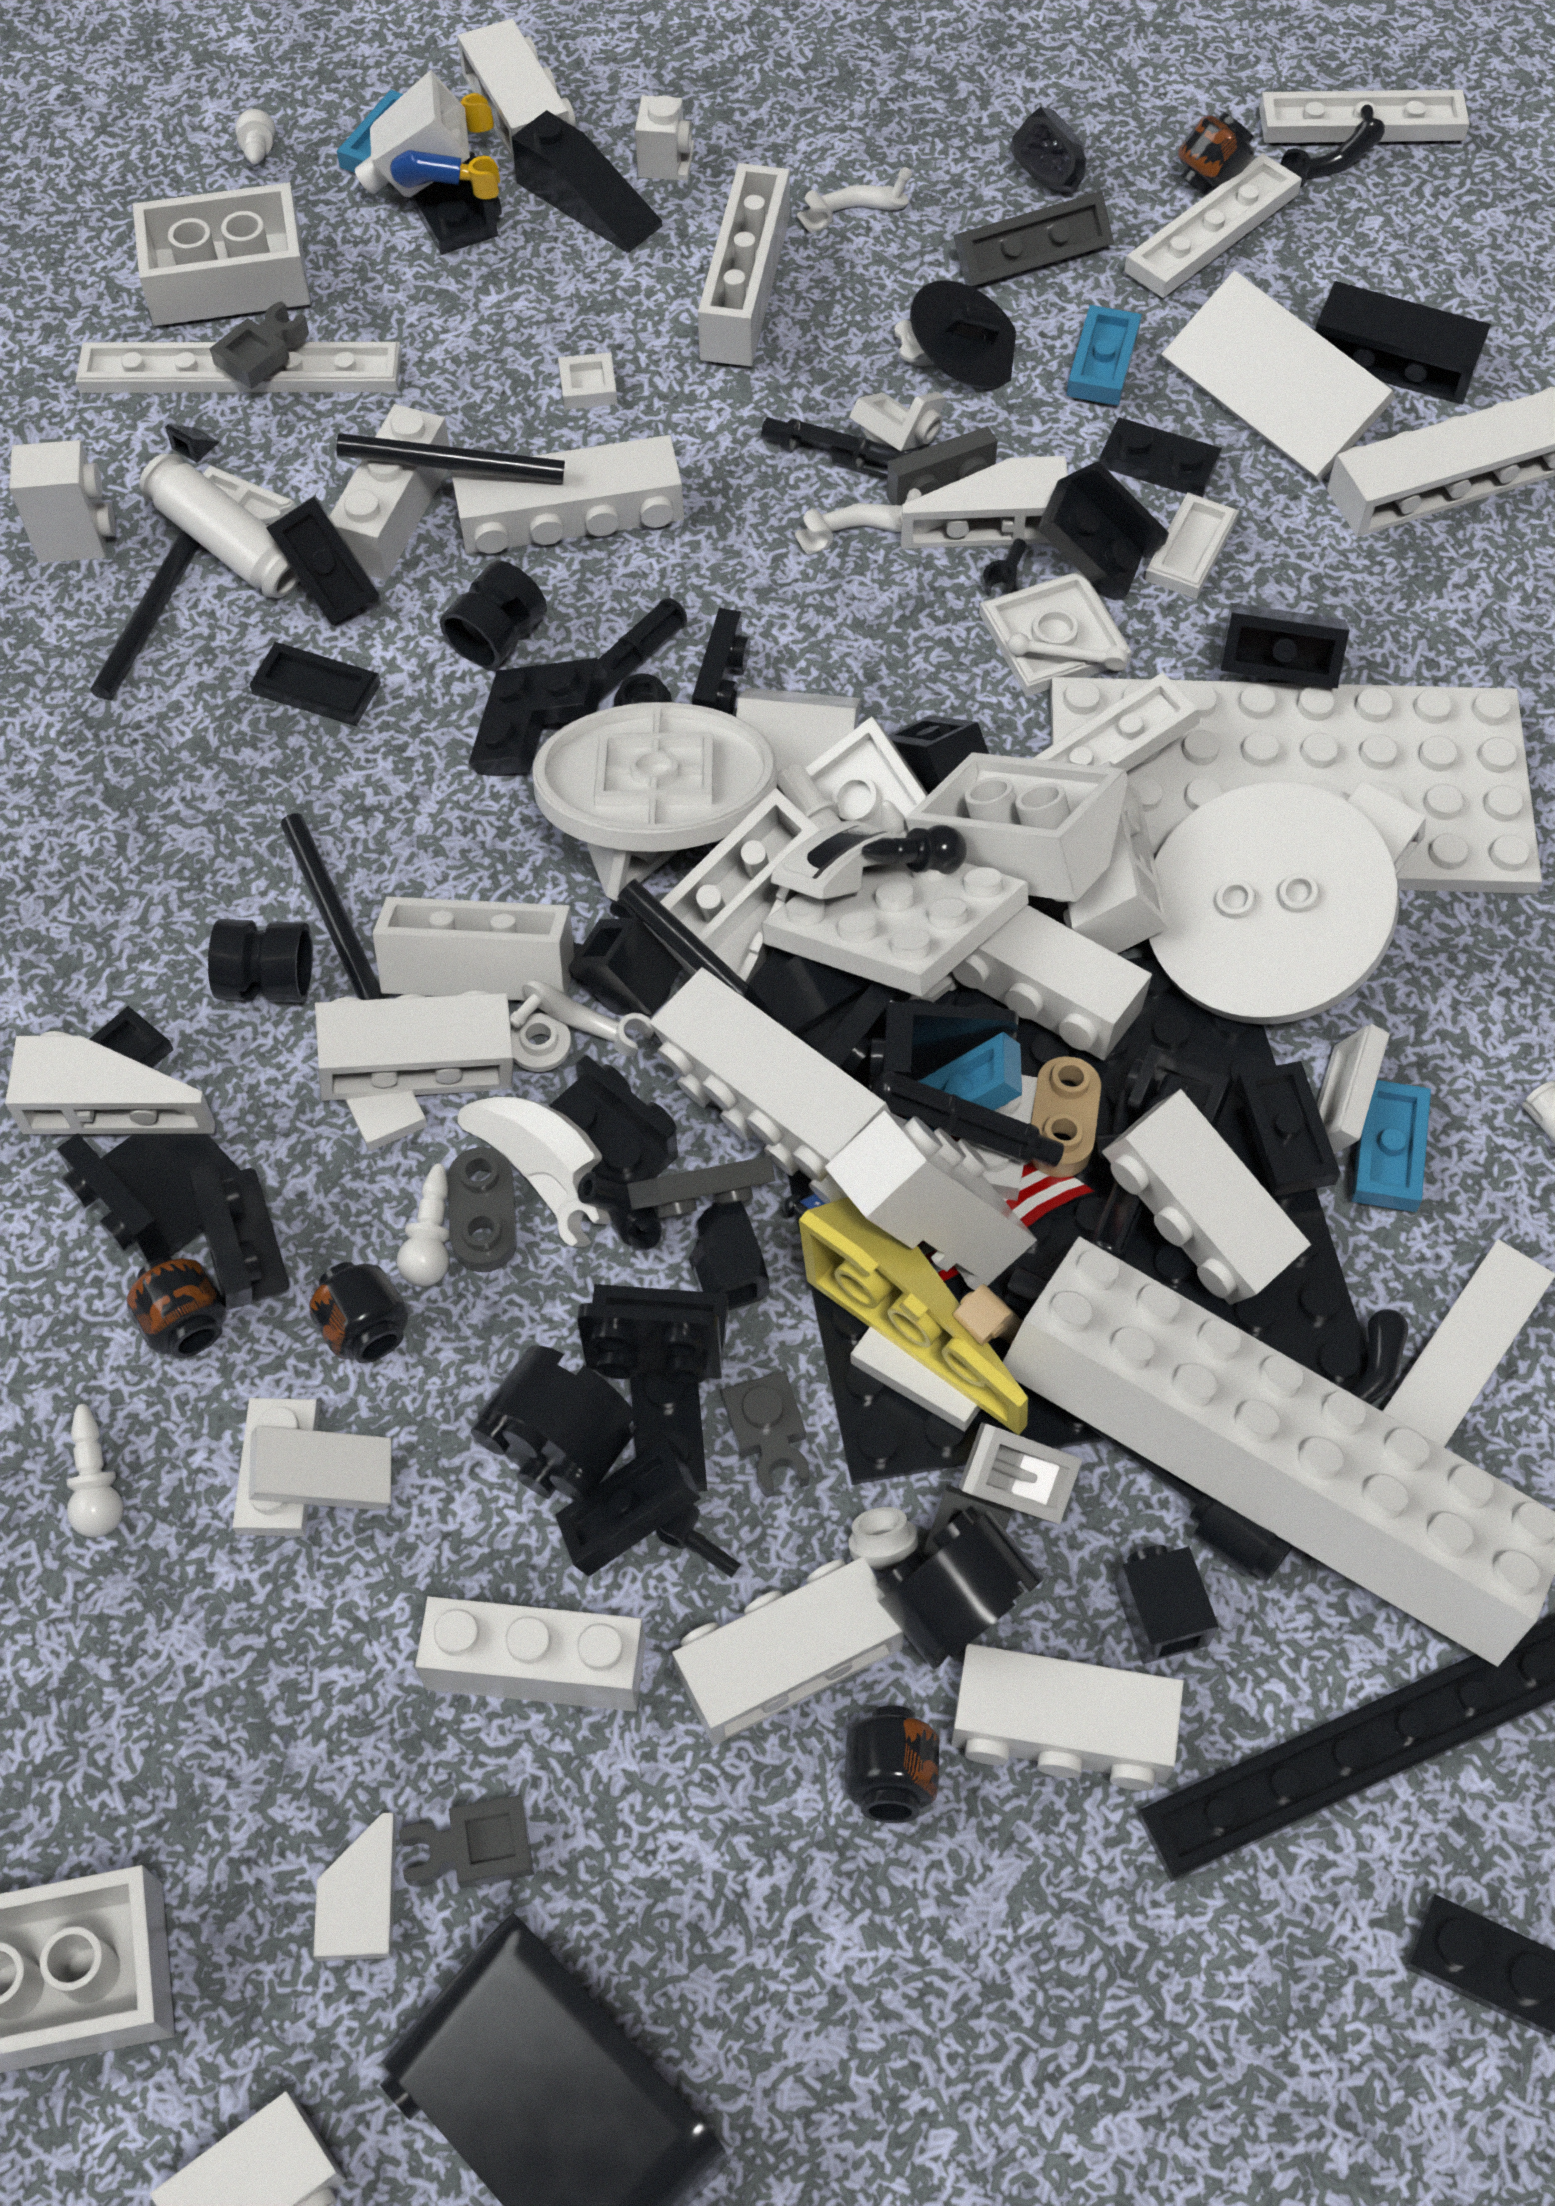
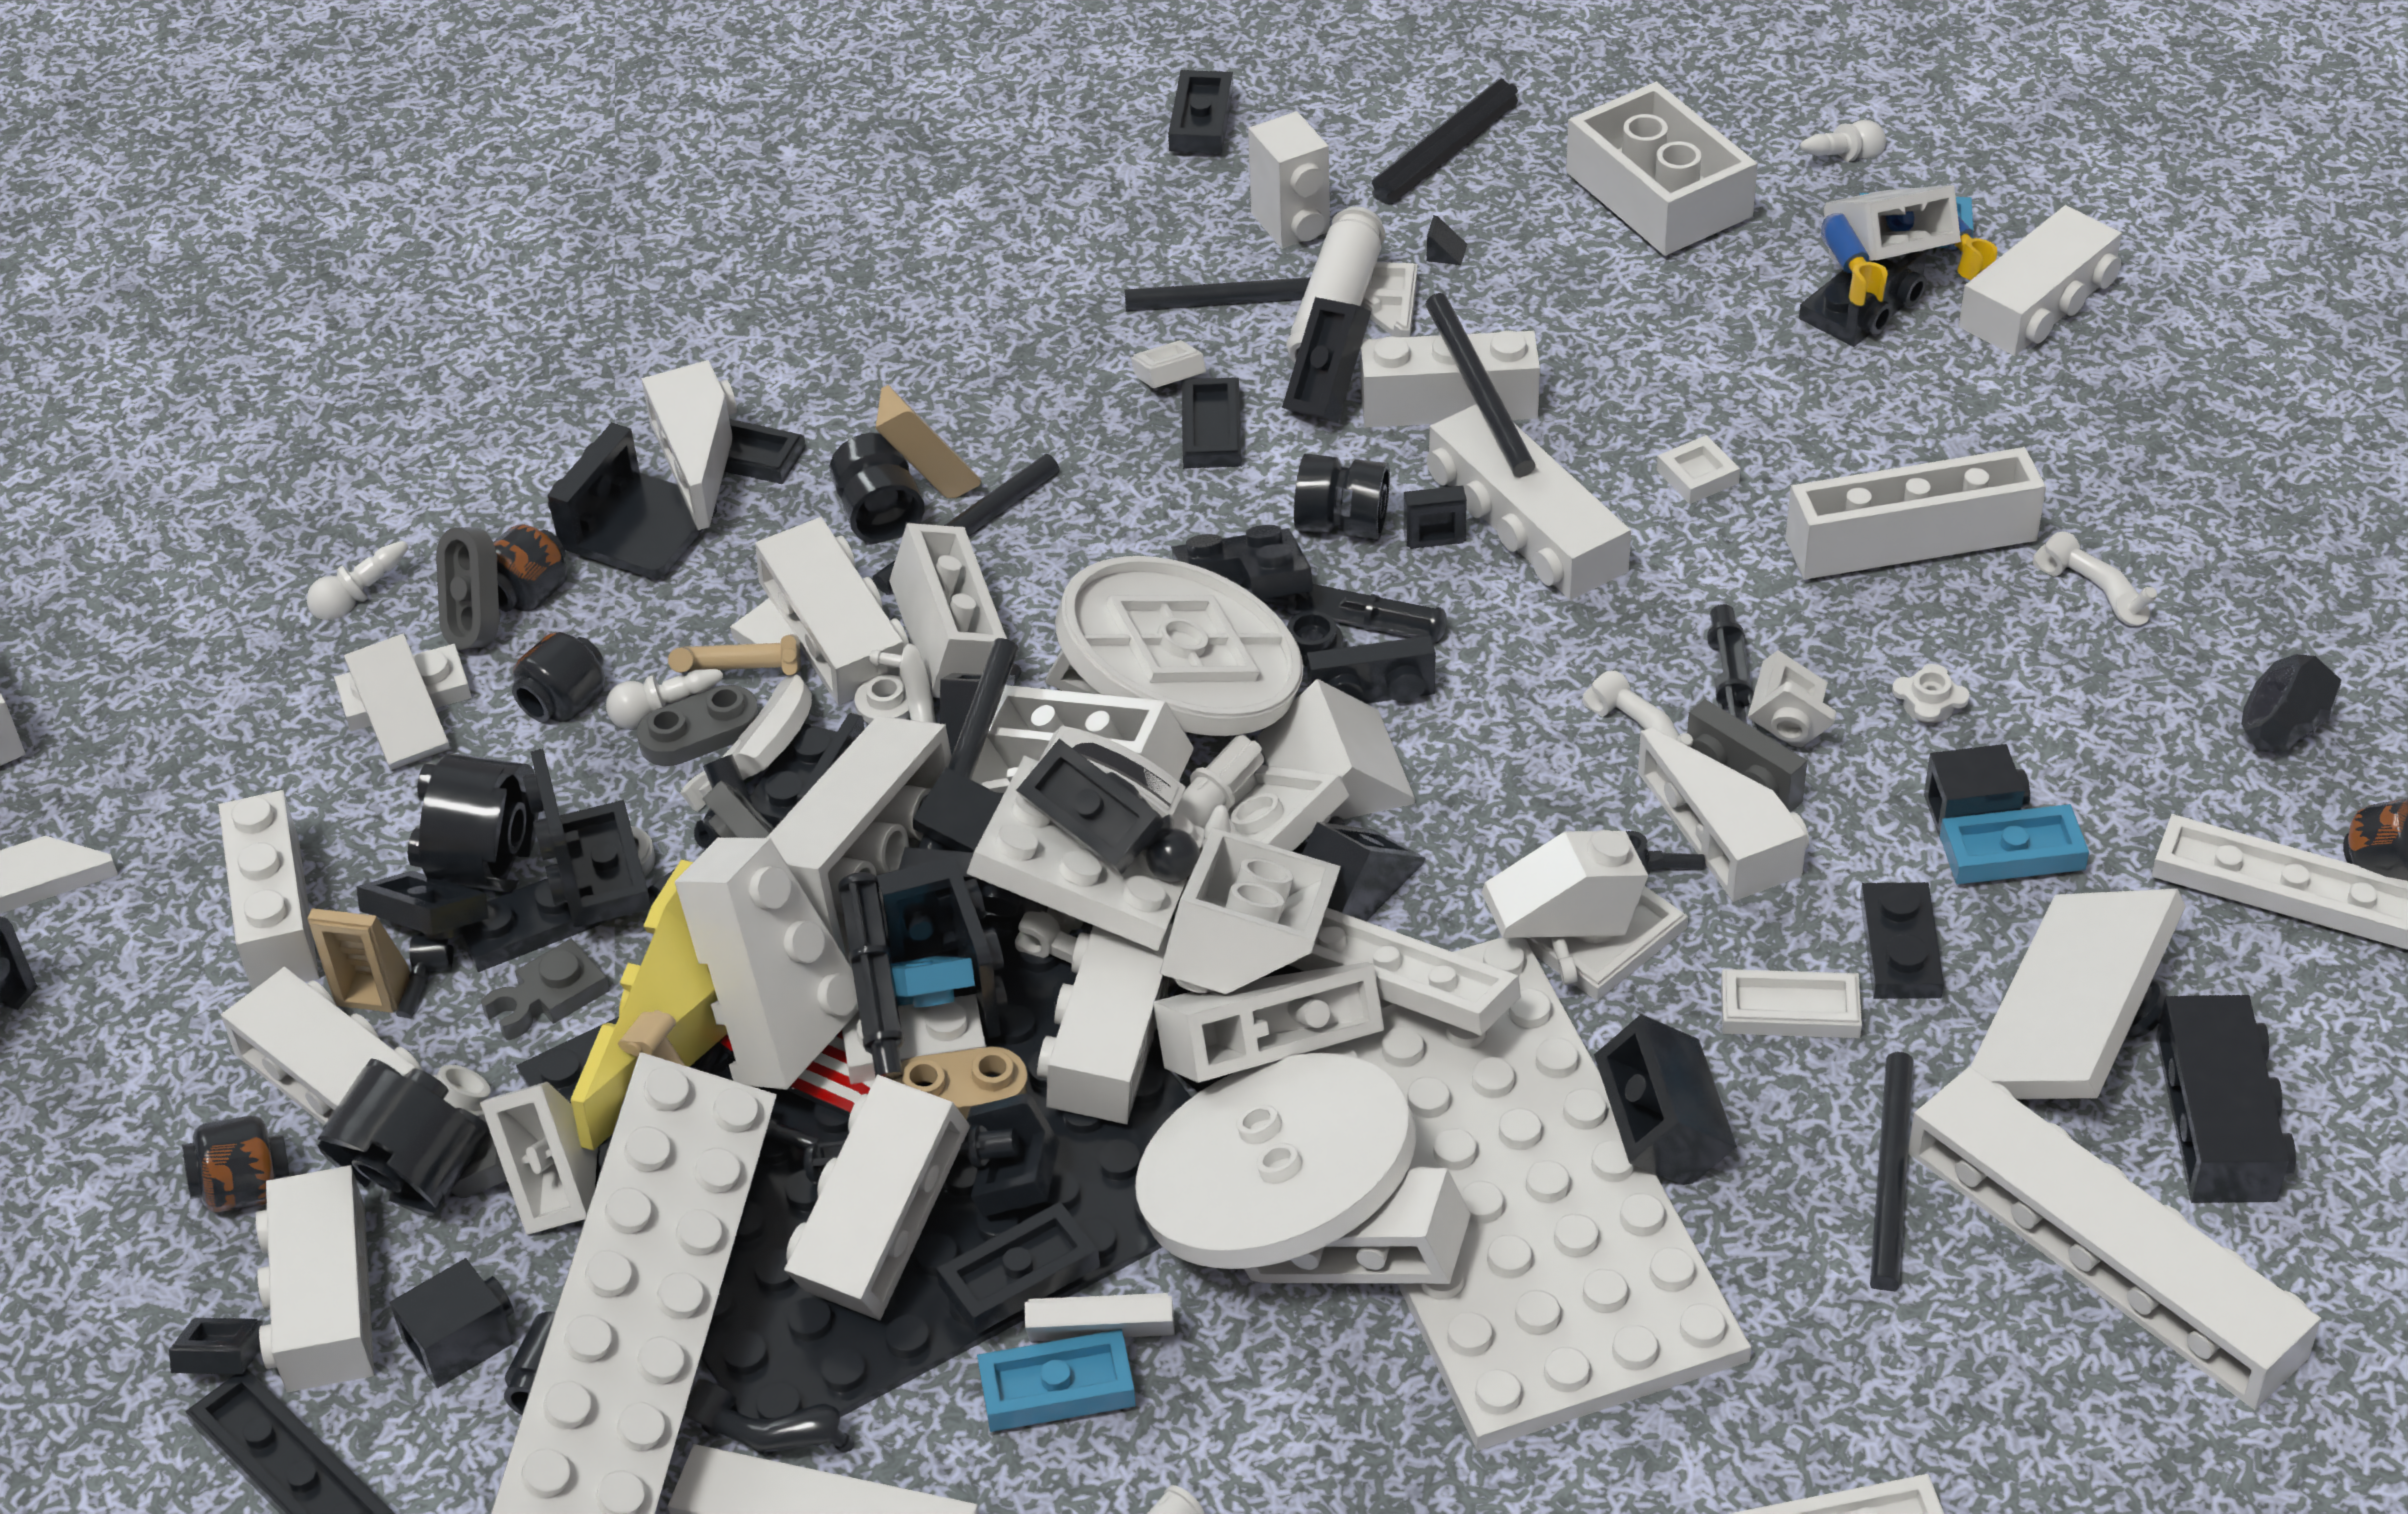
camera: 70 degrees right, 15 degrees down
(50, 384) = (1444, 141): none -> black axle
(190, 368) = (1556, 244): white tile -> none
(194, 1354) = (467, 588): none -> dark grey plate
(223, 686) = (1168, 364): none -> white tile
(238, 1235) = (588, 565): black bracket -> none
(241, 895) = (923, 446): none -> tan slope
(258, 350) = (1560, 228): dark grey plate -> none
(405, 1182) = (739, 656): none -> tan piece
(484, 1844) = (98, 920): dark grey plate -> none
(553, 562) = (1435, 517): none -> black tile
(581, 182) = (1951, 369): black slope -> none
(663, 139) = (2056, 402): white brick -> none
(689, 1582) = (359, 960): none -> tan slope
(899, 874) = (1090, 806): none -> black plate
(964, 333) = (1952, 703): black shield -> none
(1033, 239) = (2143, 733): dark grey plate -> none
(1047, 353) = (1974, 783): none -> black brick
(1060, 615) = (1569, 888): none -> white slope
(1100, 528) = (1720, 895): black bracket -> none
(1109, 1831) = (216, 1346): none -> black tile
(1376, 550) = (1892, 1172): none -> black bar

